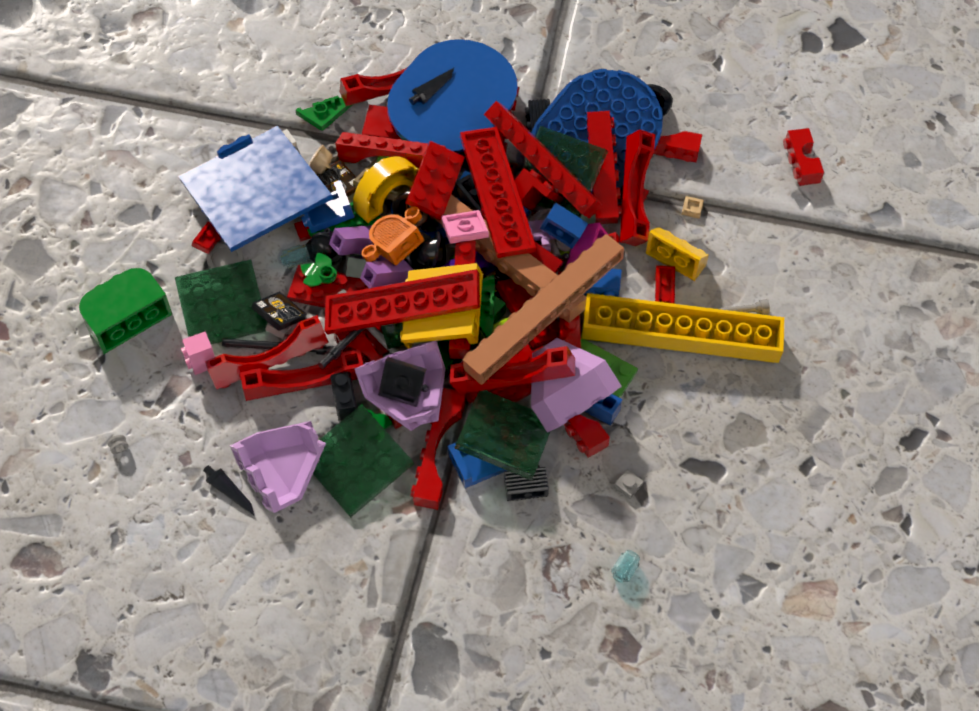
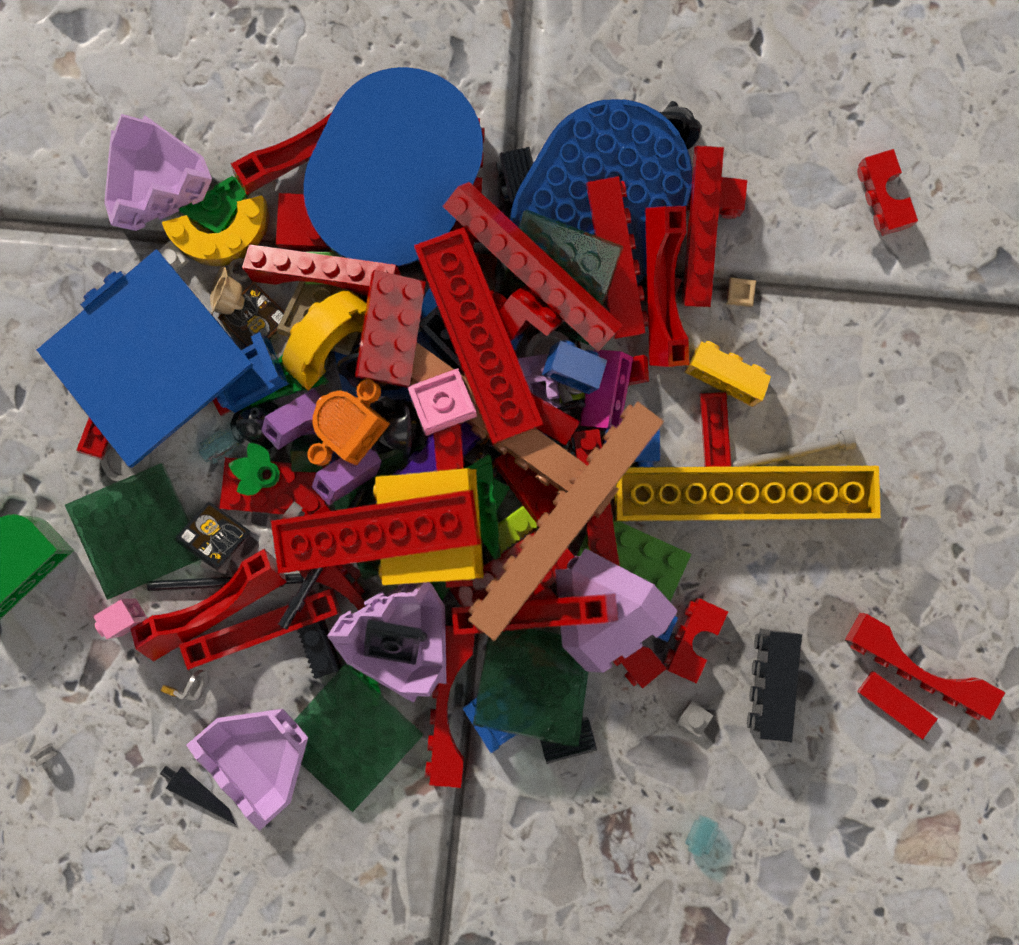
camera: 10 degrees left, 25 degrees up
(229, 414) = (204, 681): none -> light grey piece
(281, 86) = (150, 174): none -> lavender panel
(315, 134) = (222, 247): none -> yellow brick
(428, 89) = (358, 166): black bar -> none
(642, 412) = (683, 659): none -> red arch
(666, 156) = (702, 226): none -> red brick
(692, 458) = (775, 684): none -> black brick
(790, 493) = (897, 705): none -> red tile
(847, 489) = (877, 639): none -> red arch

